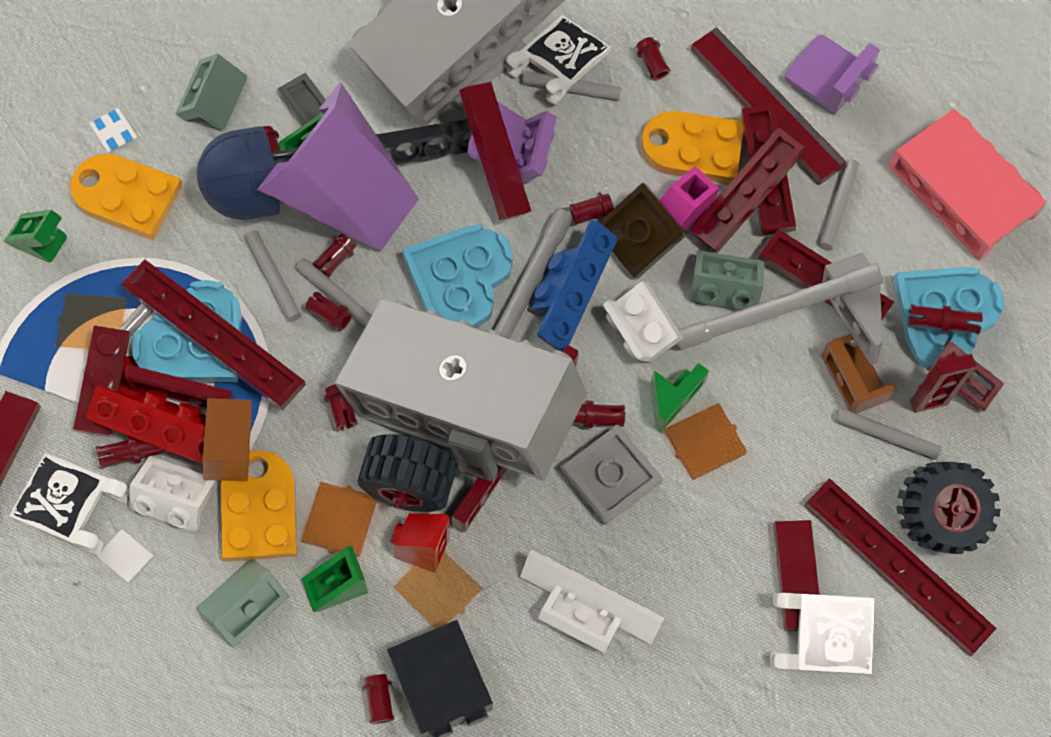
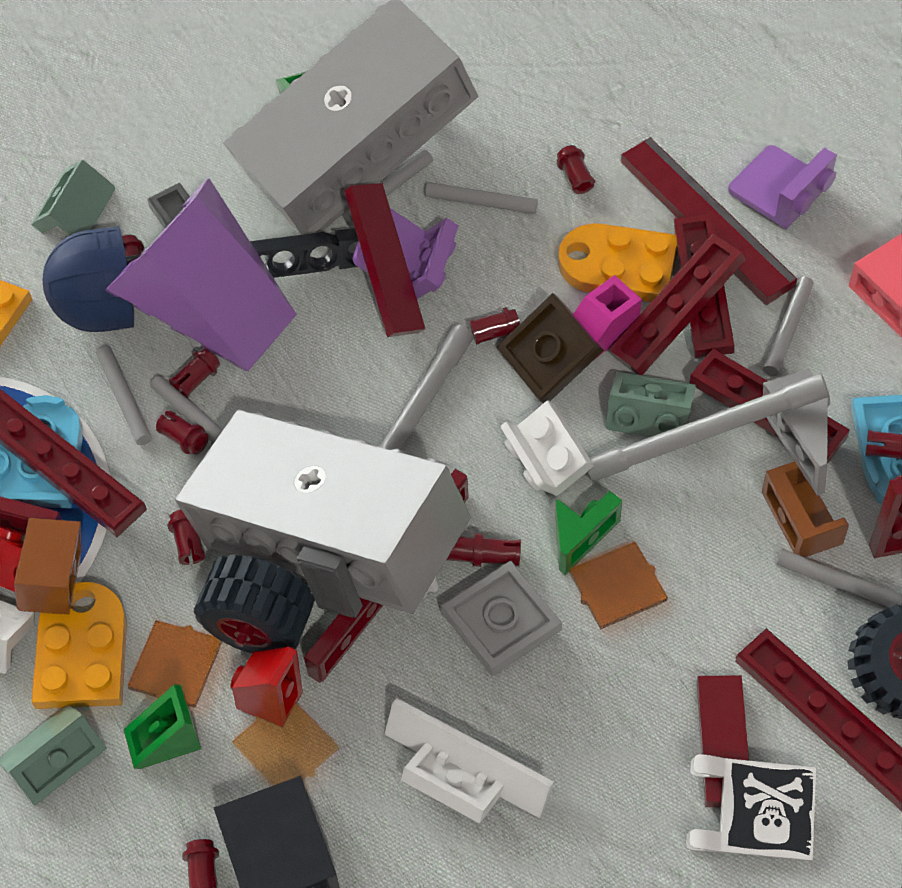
camera: 10 degrees right, 10 degrees down
(460, 271) = (339, 388): medium azure plate -> none
(562, 52) = (471, 163): flag -> none
(570, 285) = (467, 402): blue bracket -> none

